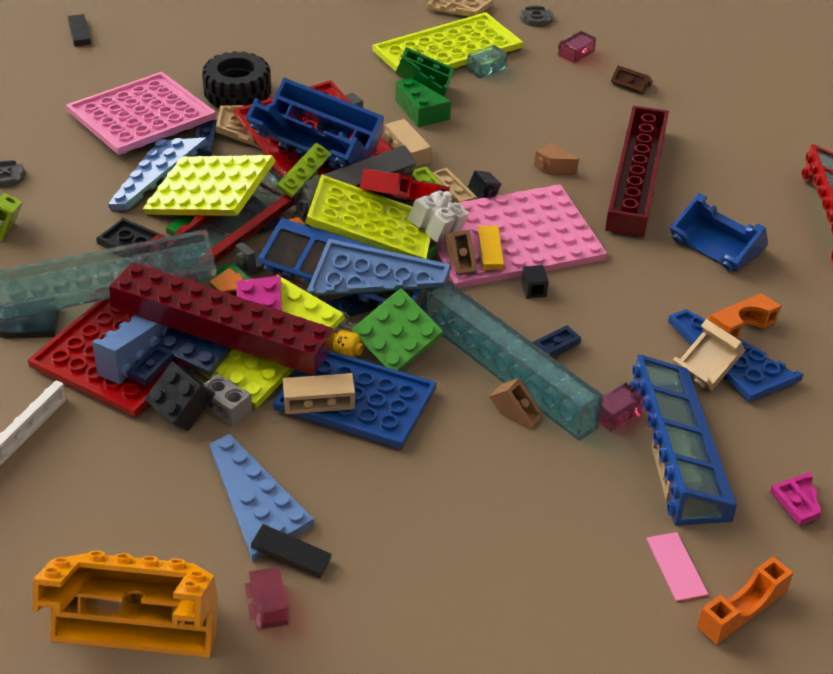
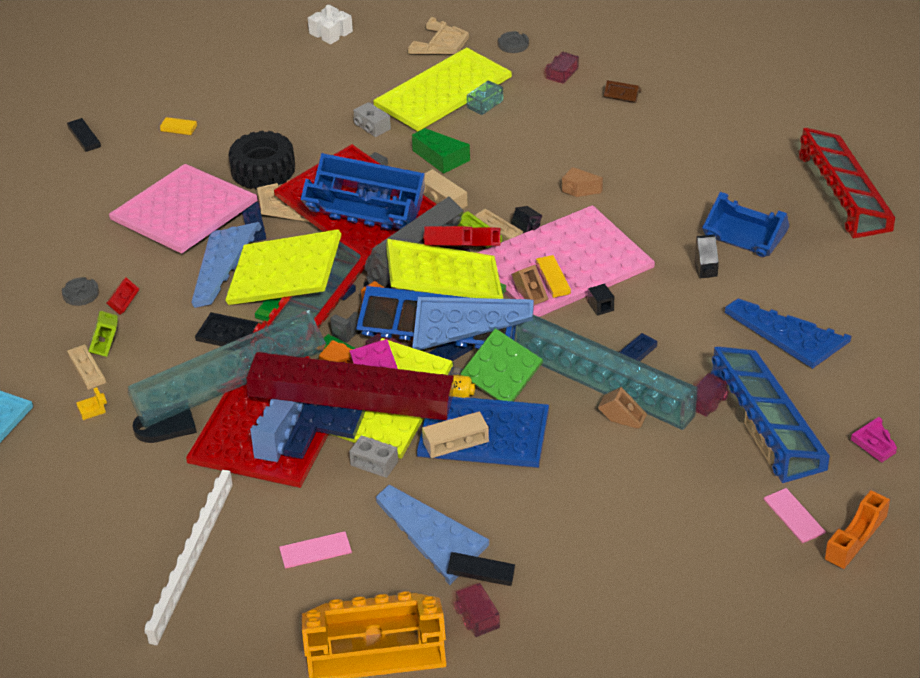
camera: 10 degrees left, 0 degrees up
(42, 185) = (122, 296): none -> red plate
(121, 489) = (315, 549): none -> bright pink piece
(173, 37) = (178, 126): none -> yellow tile
(180, 396) = (337, 461): black brick -> none
(304, 170) = (366, 237): lime bracket -> none
(364, 62) = (372, 119): none -> light grey brick
(425, 71) = (435, 118): green wedge -> none
(438, 215) = (500, 256): white brick -> none
(637, 172) = (657, 179): dark red brick -> none
(664, 257) = (706, 256): none -> slope
(711, 356) = (772, 335): tan panel -> none
(755, 311) = (778, 304): orange arch -> none

